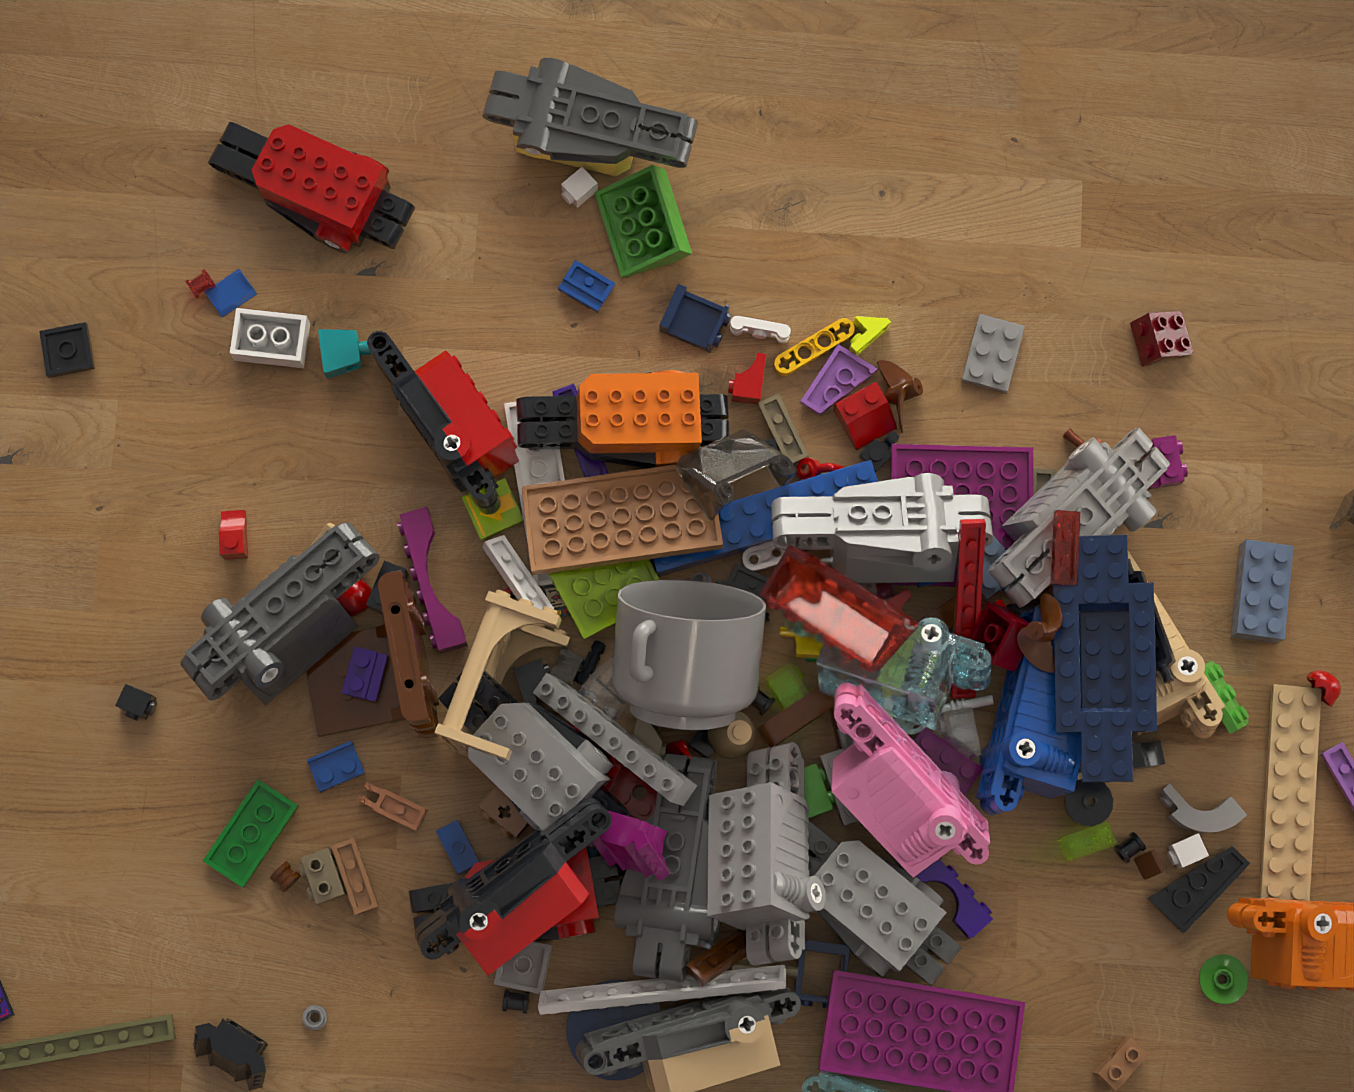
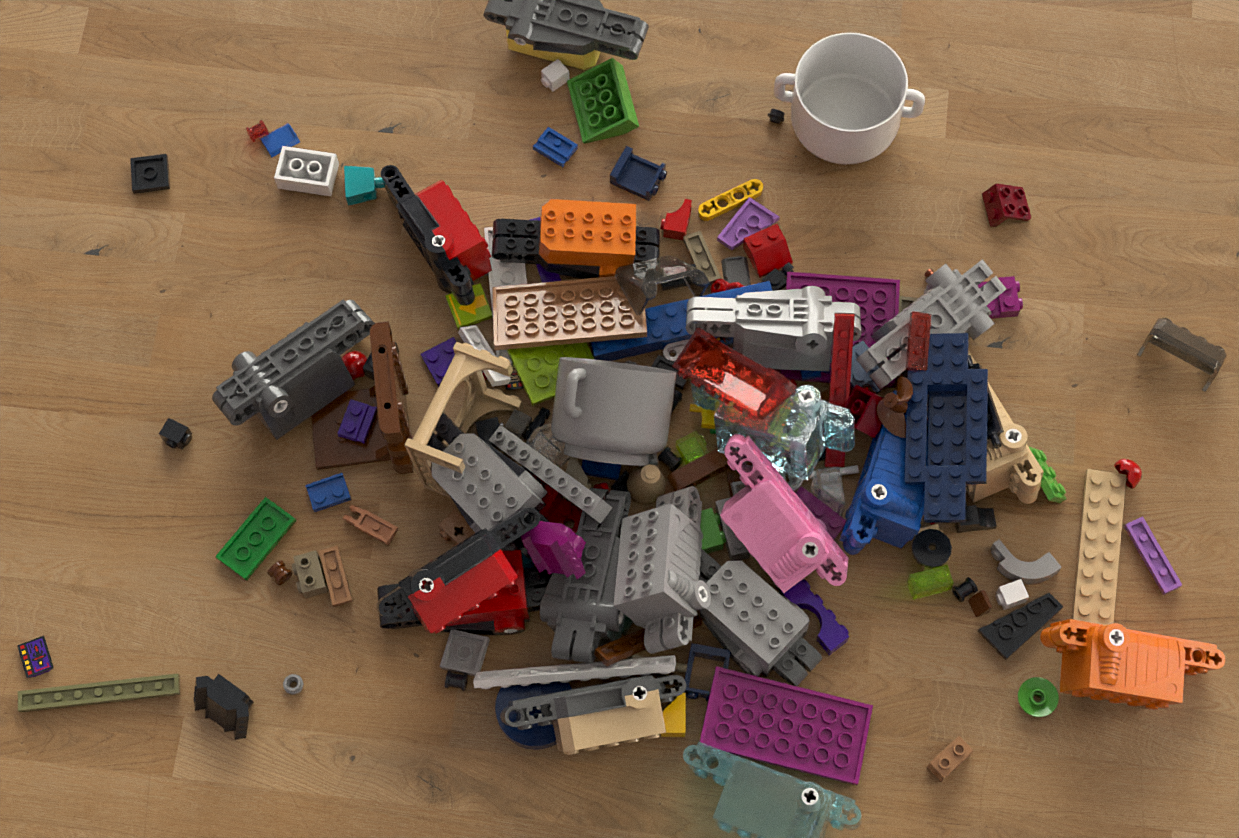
camera: 10 degrees right, 10 degrees down
(233, 535) = (264, 315): red arch -> none
(316, 185) = (352, 62): red piece -> none
(419, 533) = (410, 322): magenta arch -> none
(457, 846) = (417, 553): blue plate -> none
(468, 584) = (439, 359): none -> dark purple plate
(760, 328) = (688, 183): white plate -> none
(787, 1036) = (675, 717): none -> yellow slope
(827, 444) = (736, 270): none -> dark grey piece
(865, 229) = (776, 116): none -> black plate
(871, 329) = (774, 189): neon yellow slope -> none
(900, 384) = (796, 230): reddish brown piece -> none
(960, 213) = (848, 97): none -> white piece
(993, 353) = (871, 211): light grey plate -> none
(1262, 591) = (1080, 397): sand blue brick -> none

